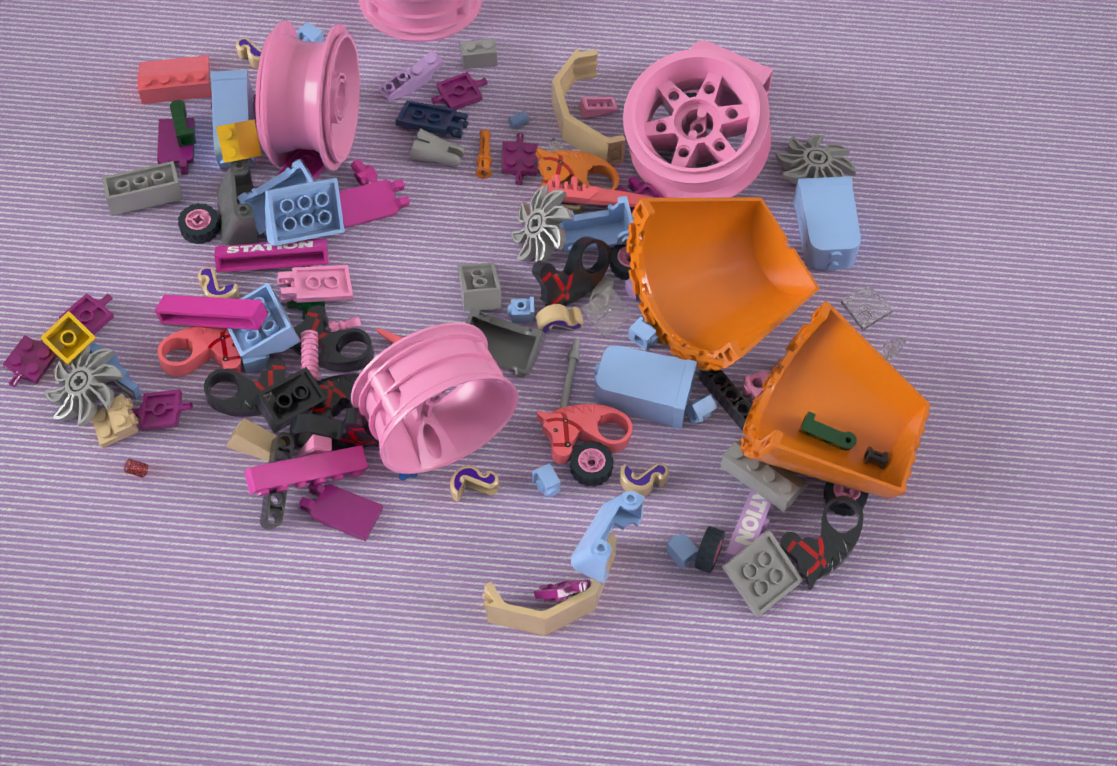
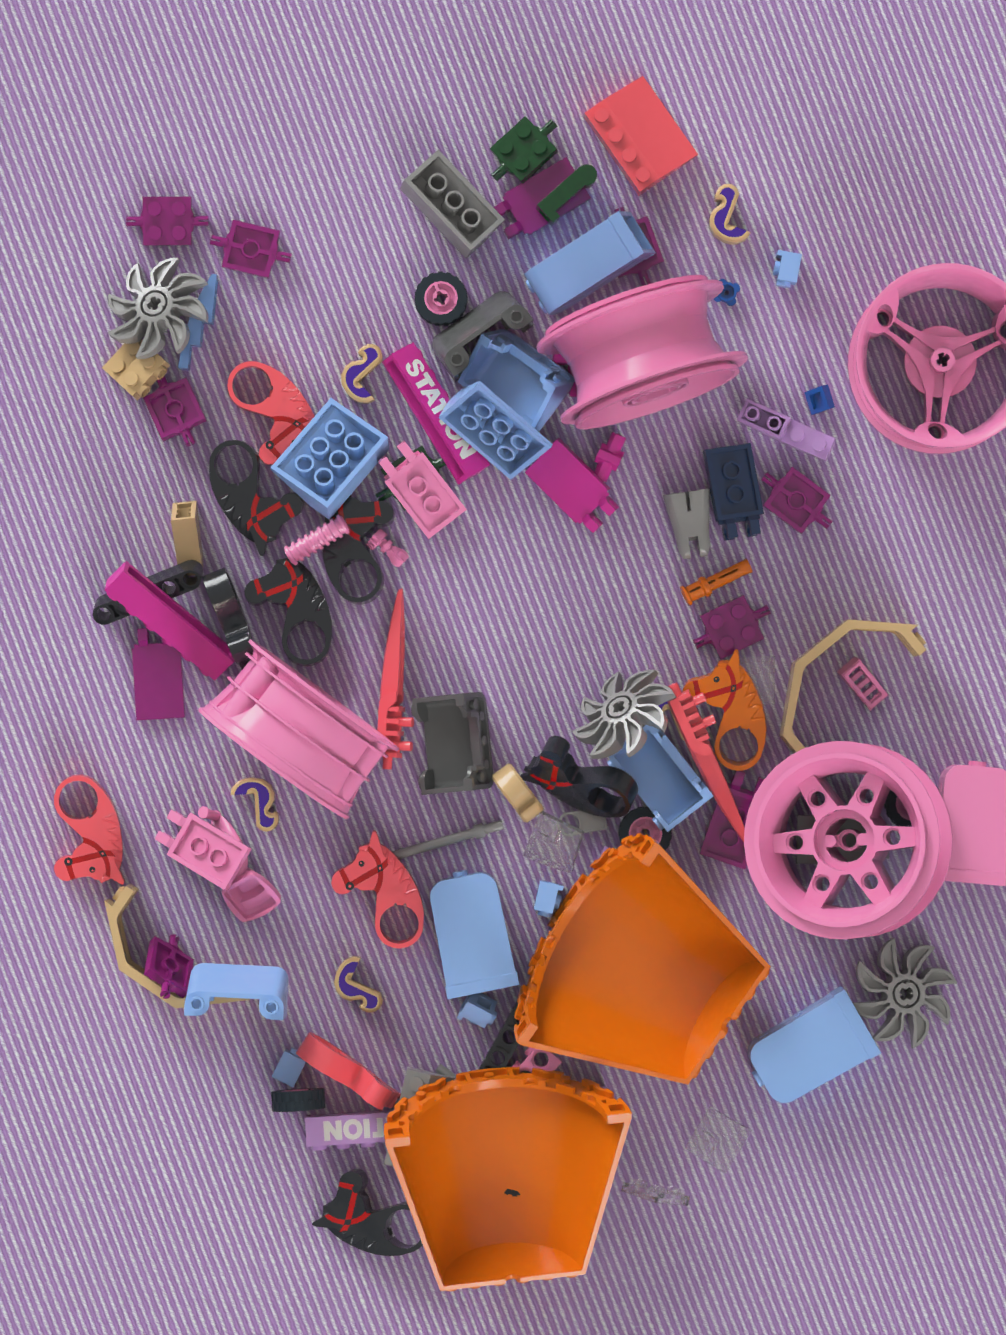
camera: 65 degrees right, 30 degrees up
(68, 338) = (201, 257): yellow slope -> none
(136, 472) = (96, 424): clear red piece -> none
(137, 139) = (523, 150): none -> dark green plate
(211, 312) = (315, 396): dark pink brick -> none
(239, 141) = (543, 299): yellow slope -> none
(288, 398) = (249, 551): black slope -> none
(316, 445) = (204, 615): bright pink slope -> none
(403, 54) = (819, 399): none -> blue plate
(433, 600) = (102, 843): none -> coral animal
(478, 53) = (874, 489): light grey slope -> none
(479, 287) = (519, 675): light grey slope -> none
(486, 528) = (205, 849): none -> bright pink tile
(517, 121) = (791, 591): light blue piece -> none
(521, 310) = (514, 750): light blue brick -> none
(535, 515) = (250, 892): none -> bright pink piece
(546, 480) = (300, 881): light blue brick -> none
(592, 454) = (351, 933): black wheel -> none
(700, 507) = (346, 1070): none -> coral animal
(762, 573) = (299, 1168): light grey plate -> none
(827, 434) = (503, 1167): dark green leg -> none
(875, 457) = (505, 1241): black bush -> none

